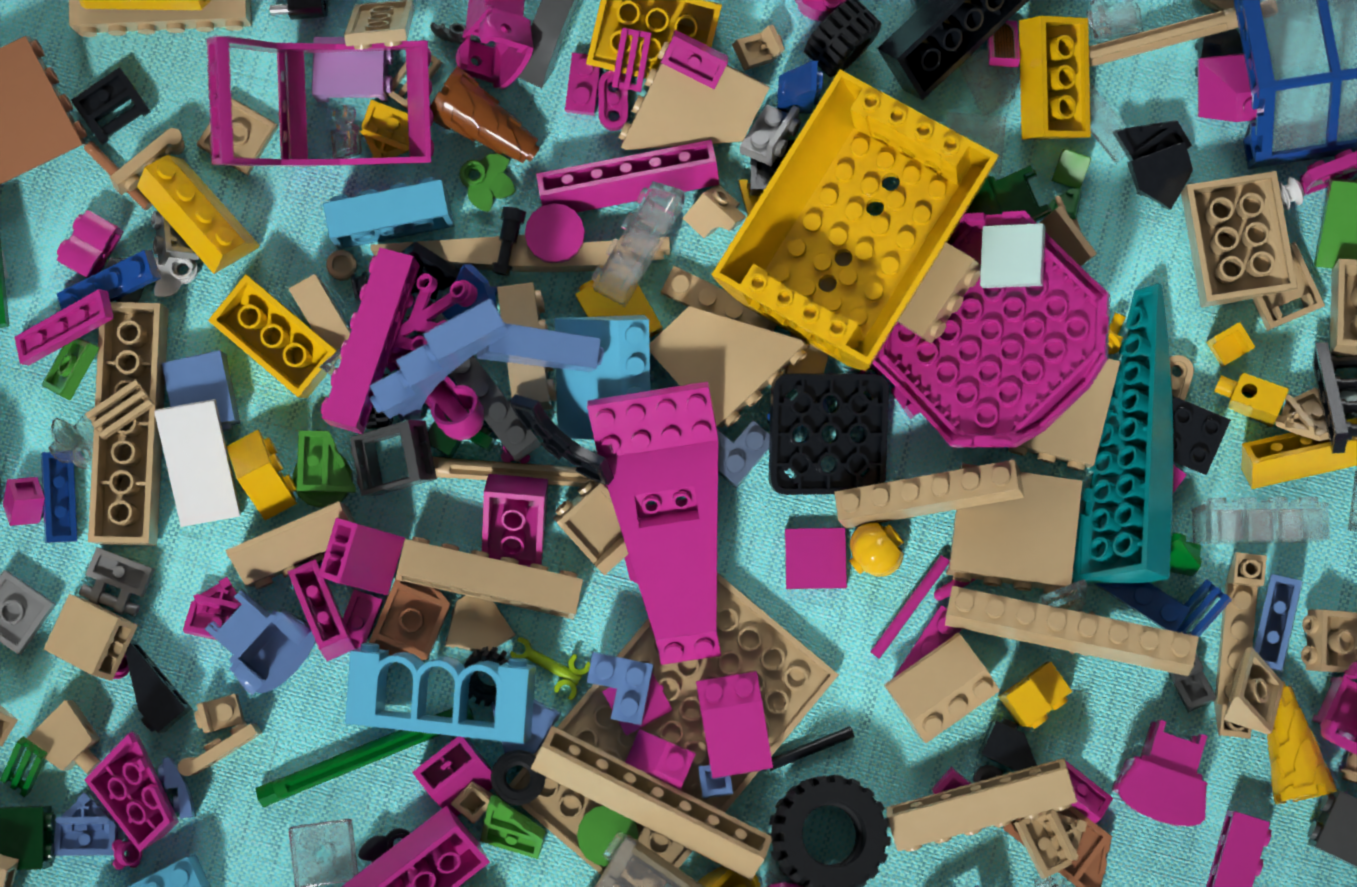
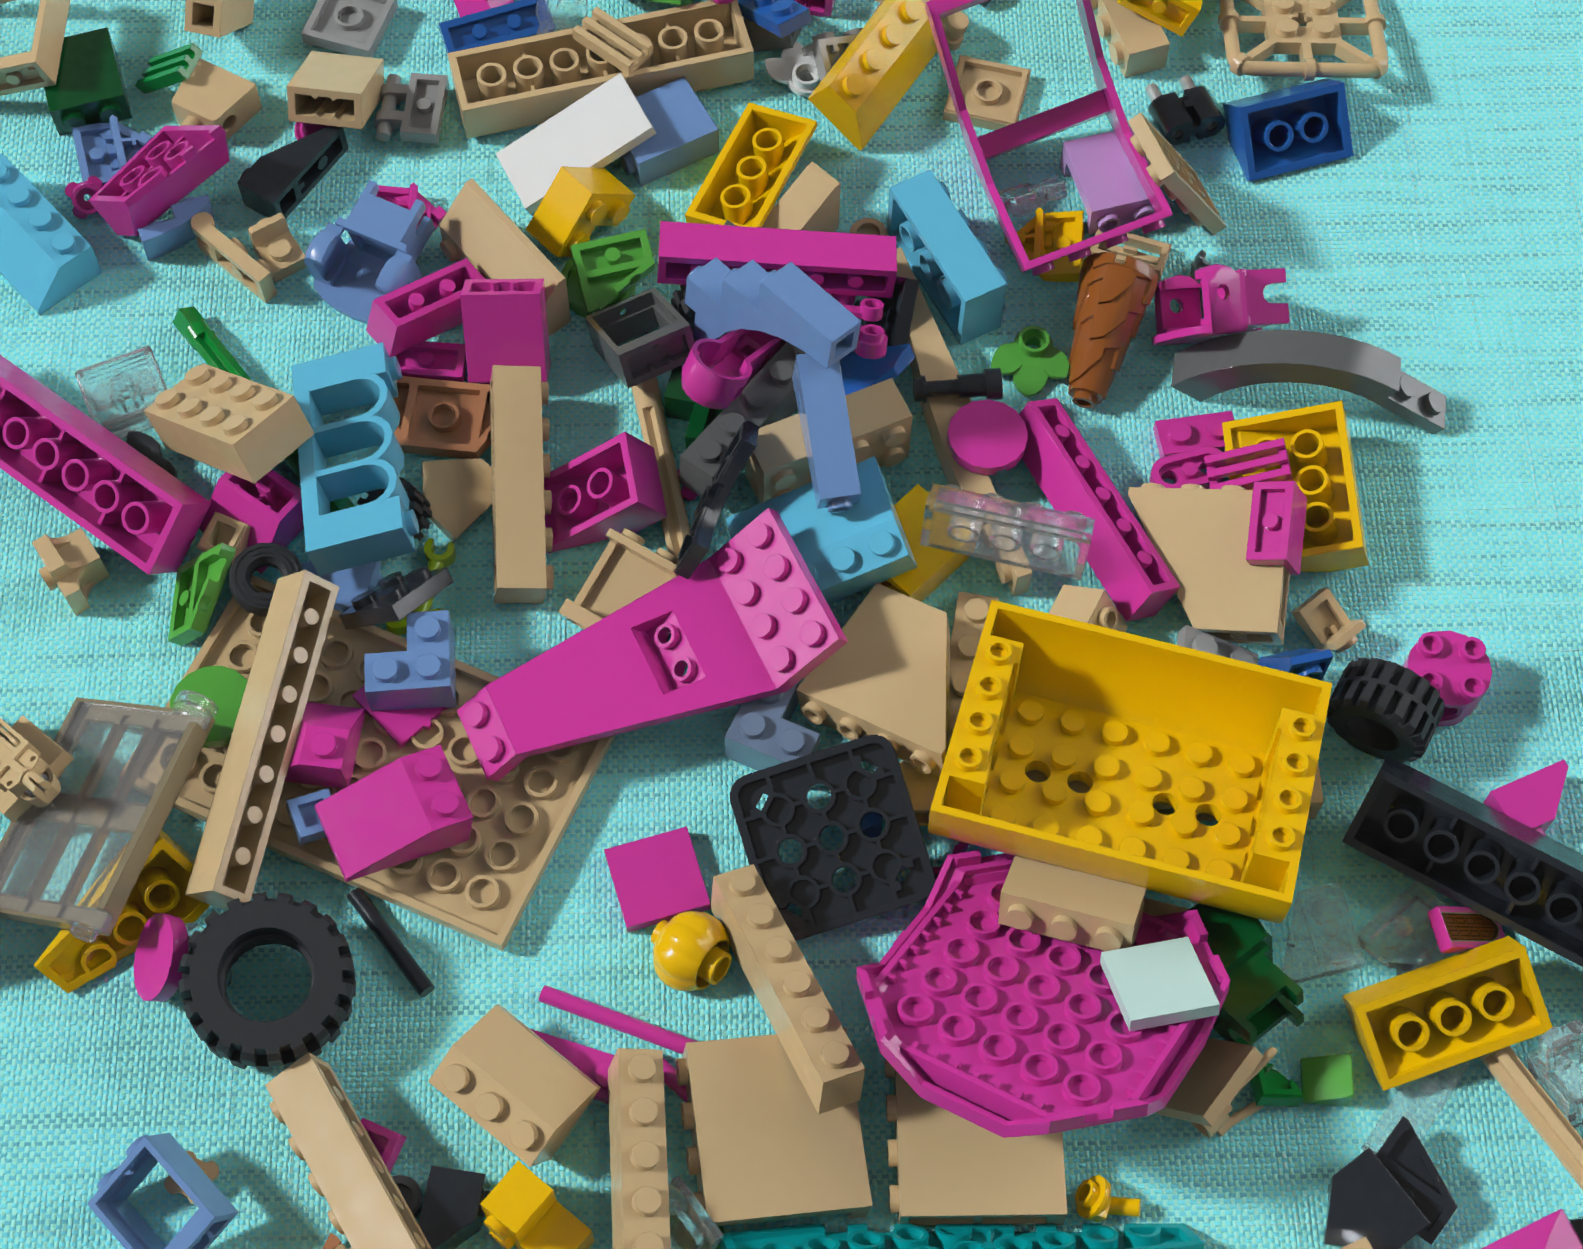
camera: 70 degrees right, 20 degrees down
(387, 779) = (229, 422): none -> tan brick
(564, 687) = (395, 597): none -> black plate

